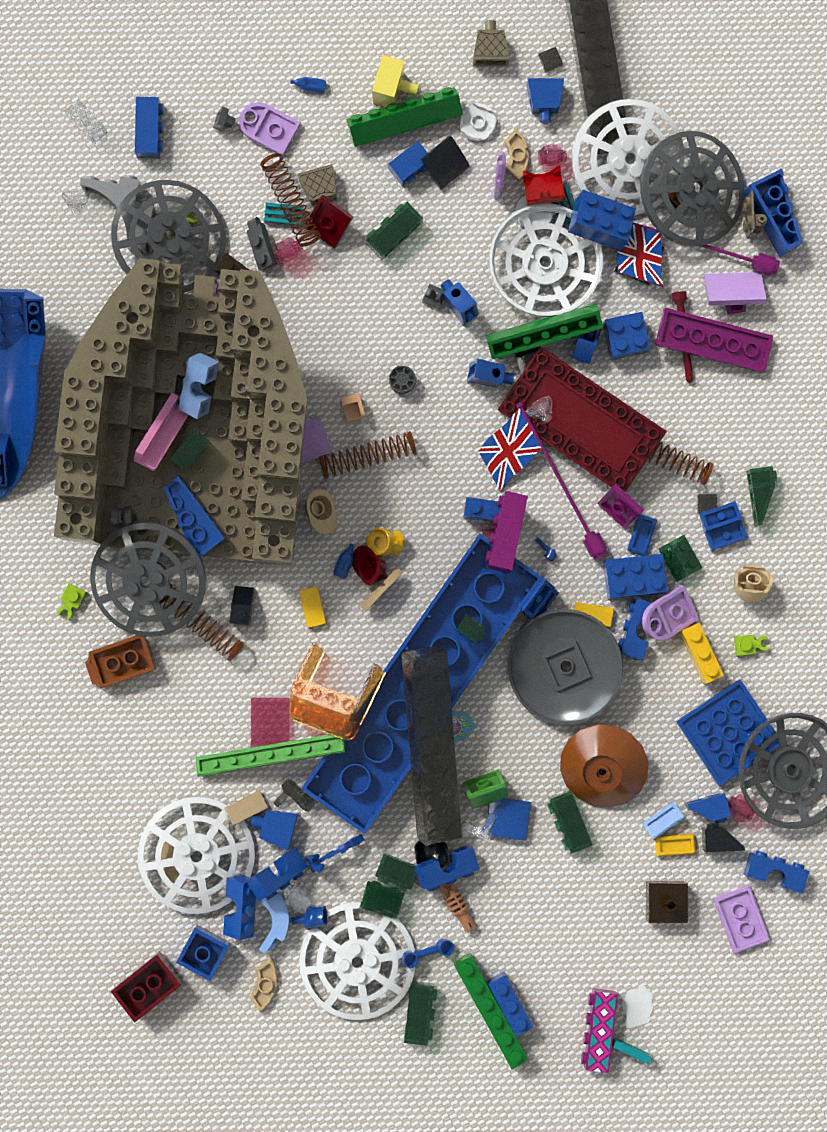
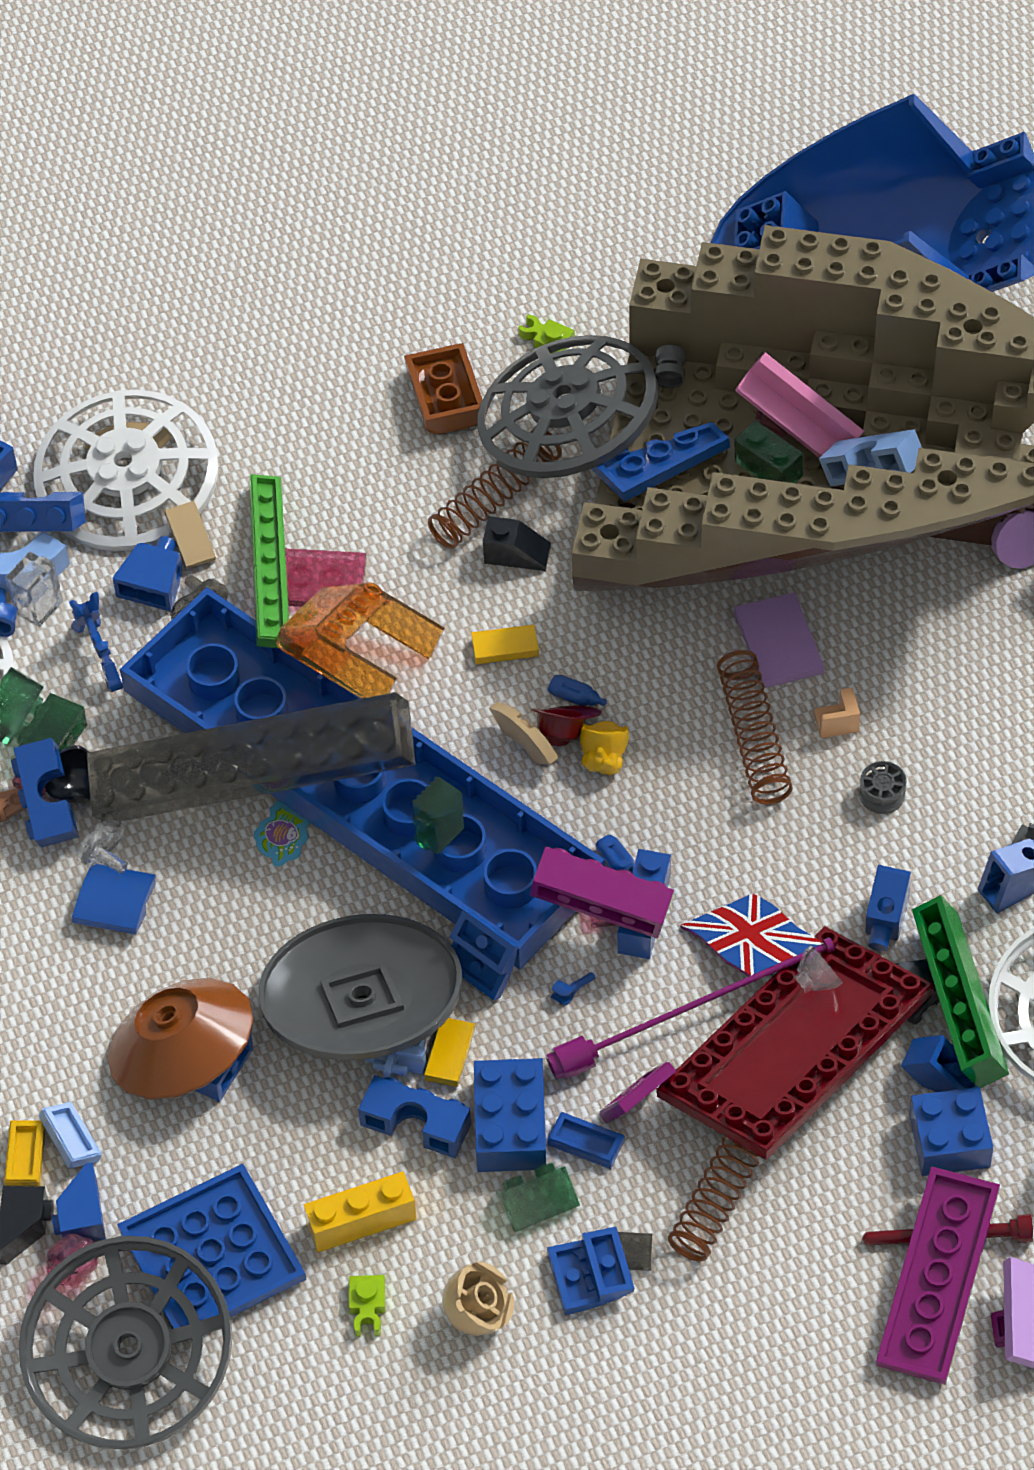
camera: 105 degrees right, 30 degrees down
(266, 882) = (61, 534): blue arch -> none
(321, 511) = (661, 652): tan piece -> none
(458, 529) = (614, 853): none -> blue piece
(485, 789) = (166, 861): bright green slope -> none
(569, 822) = (92, 987): clear green brick -> none
(671, 614) = (435, 1161): lavender tile -> none
(761, 487) = (655, 1338): clear green slope -> none

